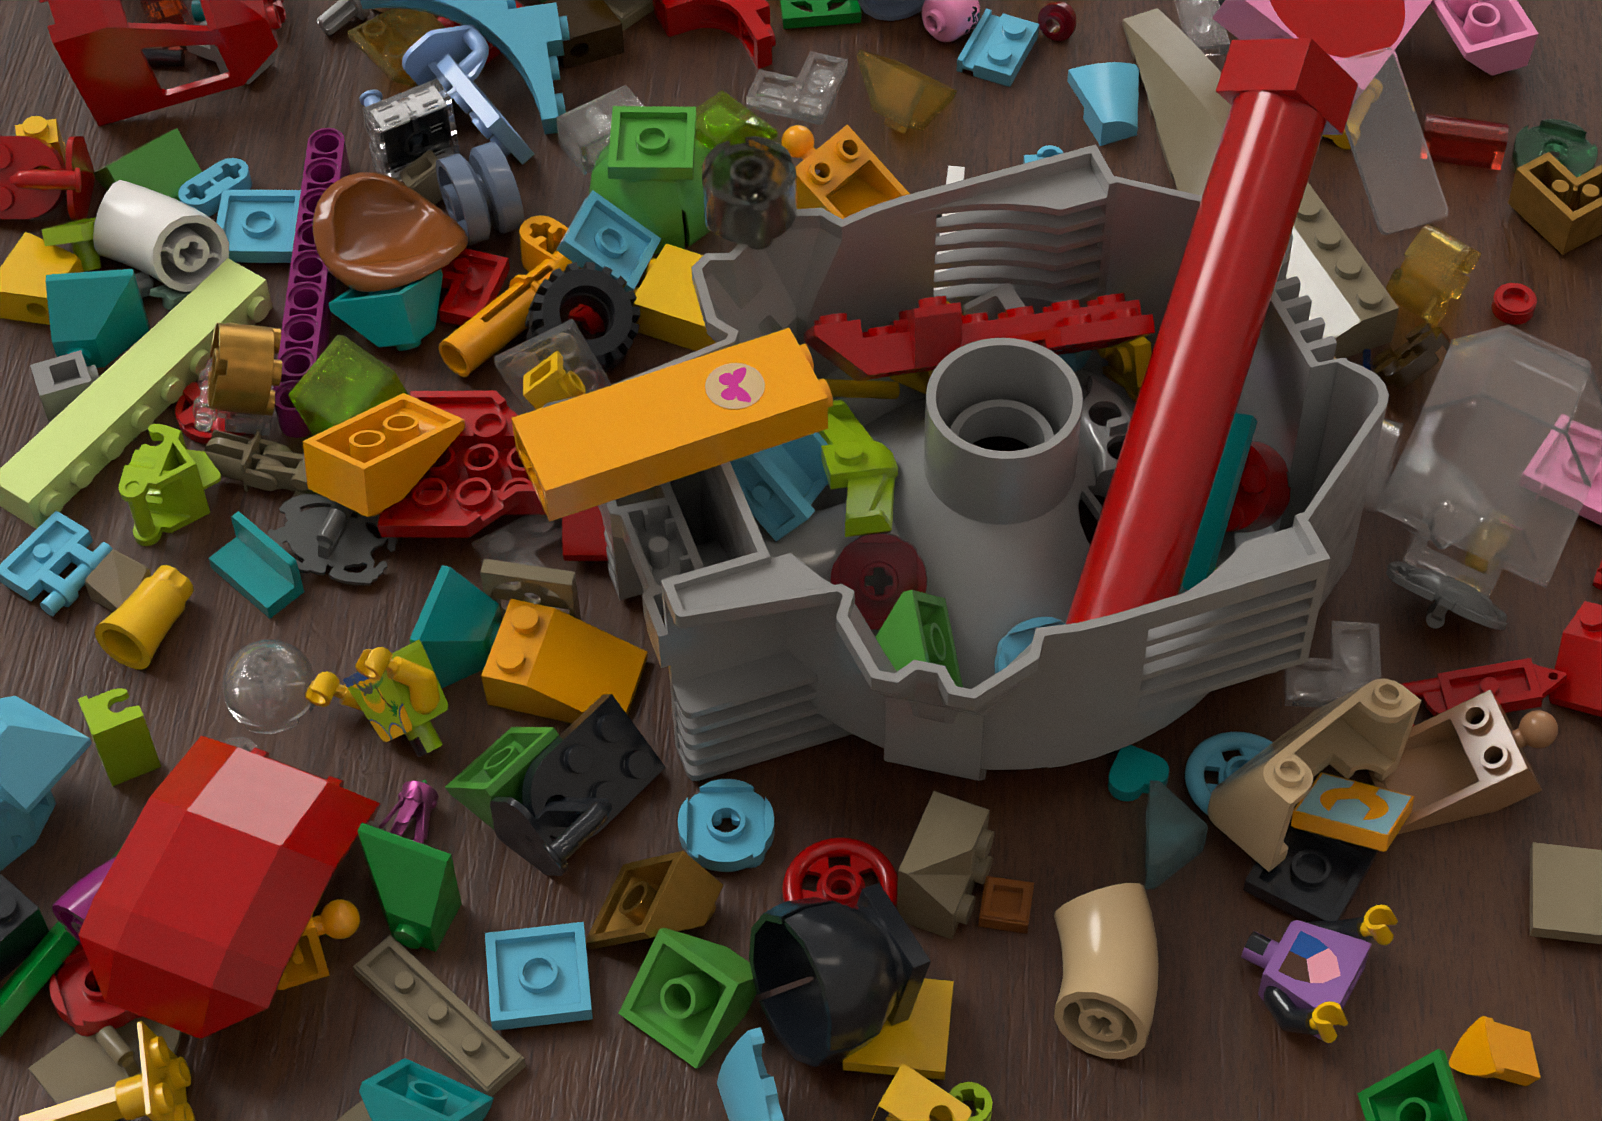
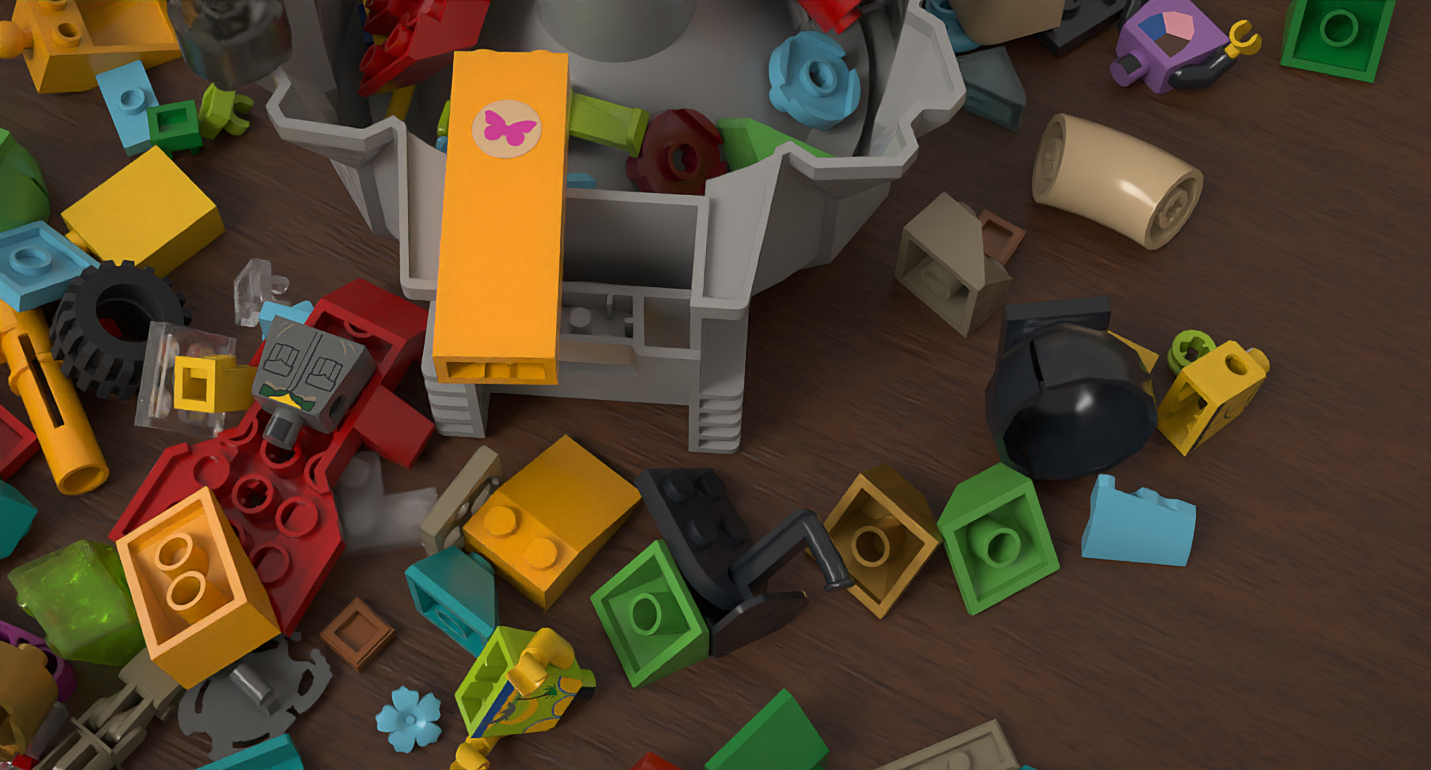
camera: 70 degrees left, 10 degrees up
(350, 643) = (410, 719): none -> medium azure plant
(409, 586) = (358, 635): none -> dark orange tile
(415, 800) = (651, 716): flat silver piece -> none
(538, 976) = (909, 672): medium azure plate -> none
(730, 850) = (814, 466): medium azure plate -> none
(814, 861) = (923, 406): red plate -> none

